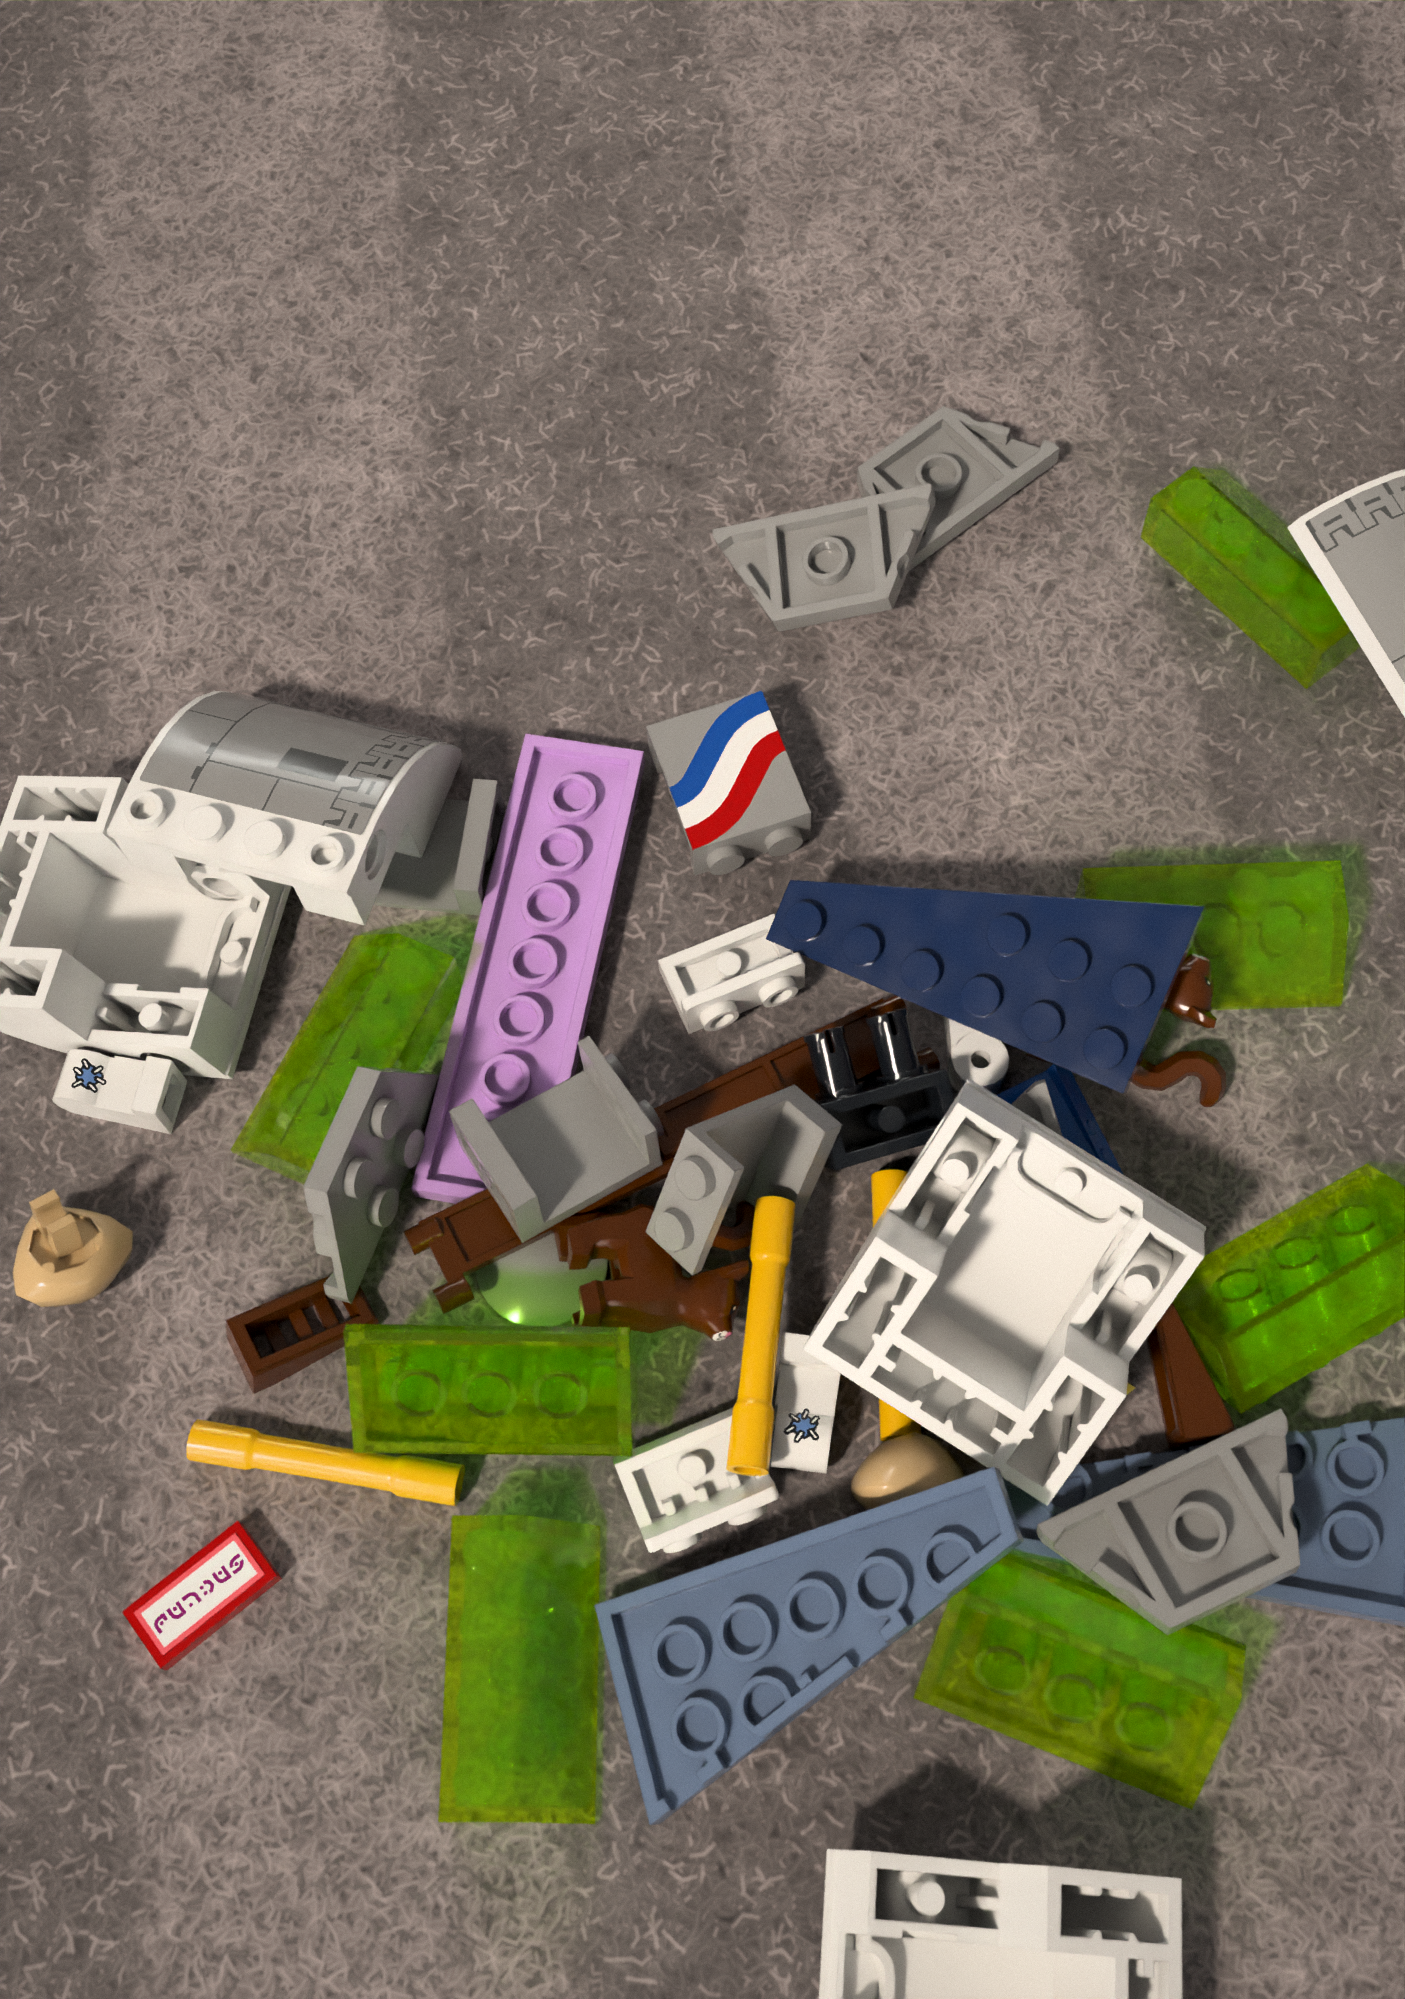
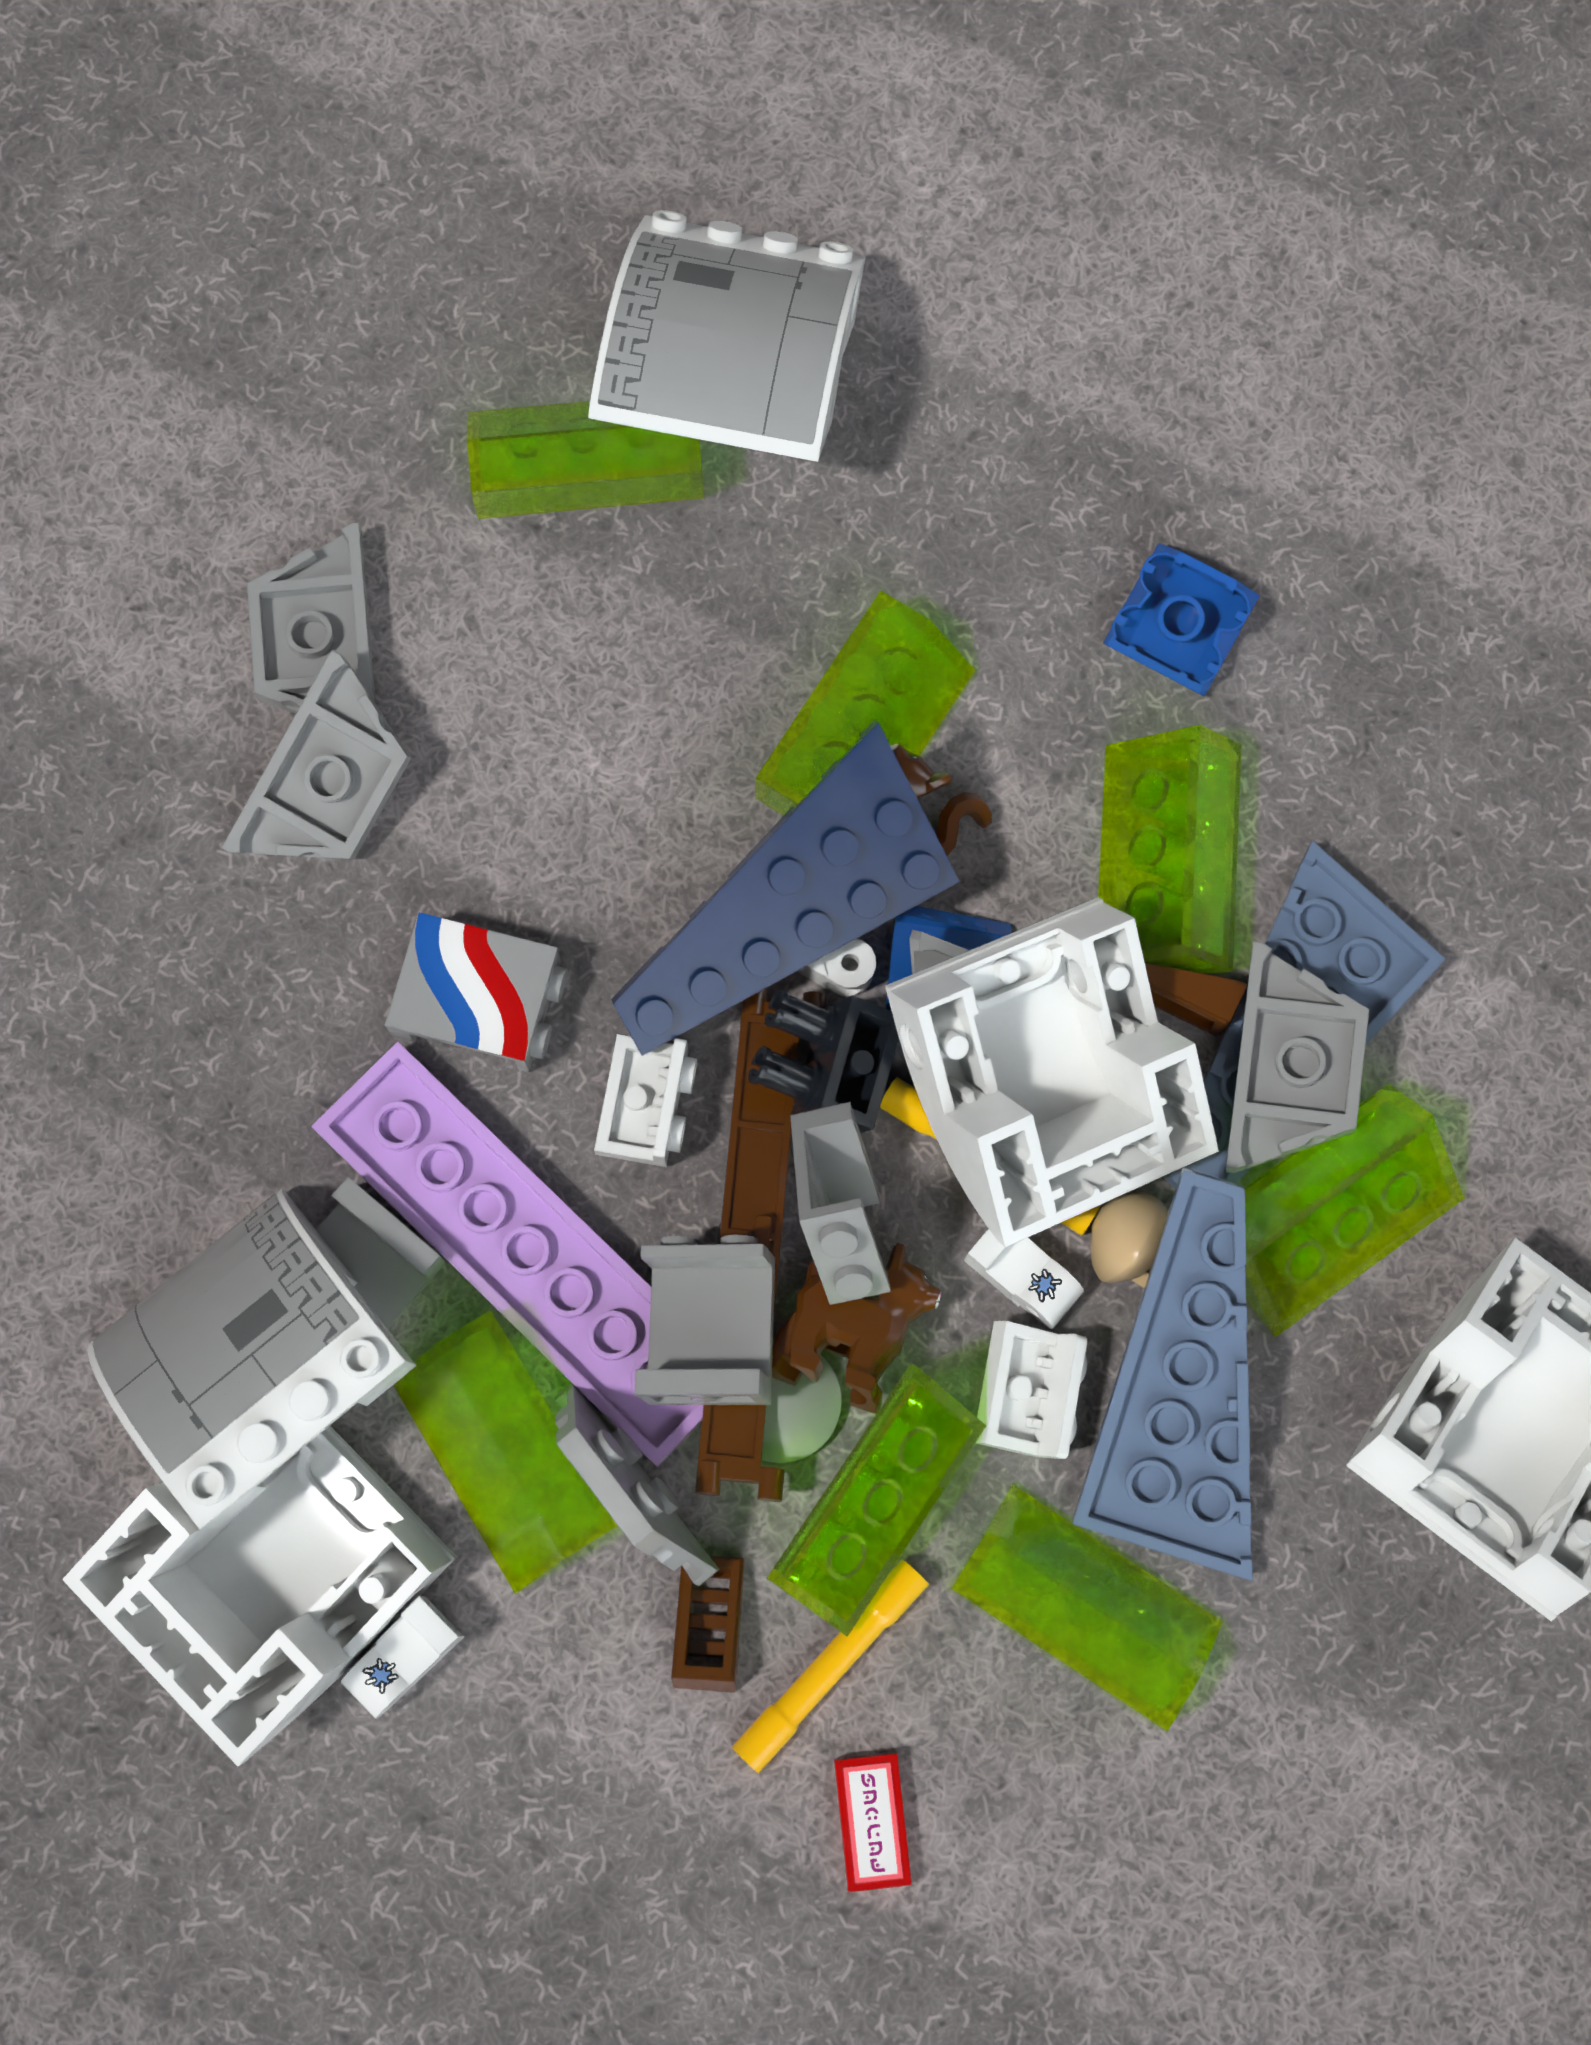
camera: 65 degrees left, 10 degrees up
(68, 1253) = (526, 1777): tan piece -> none
(753, 1412) = (1015, 1313): yellow piece -> none

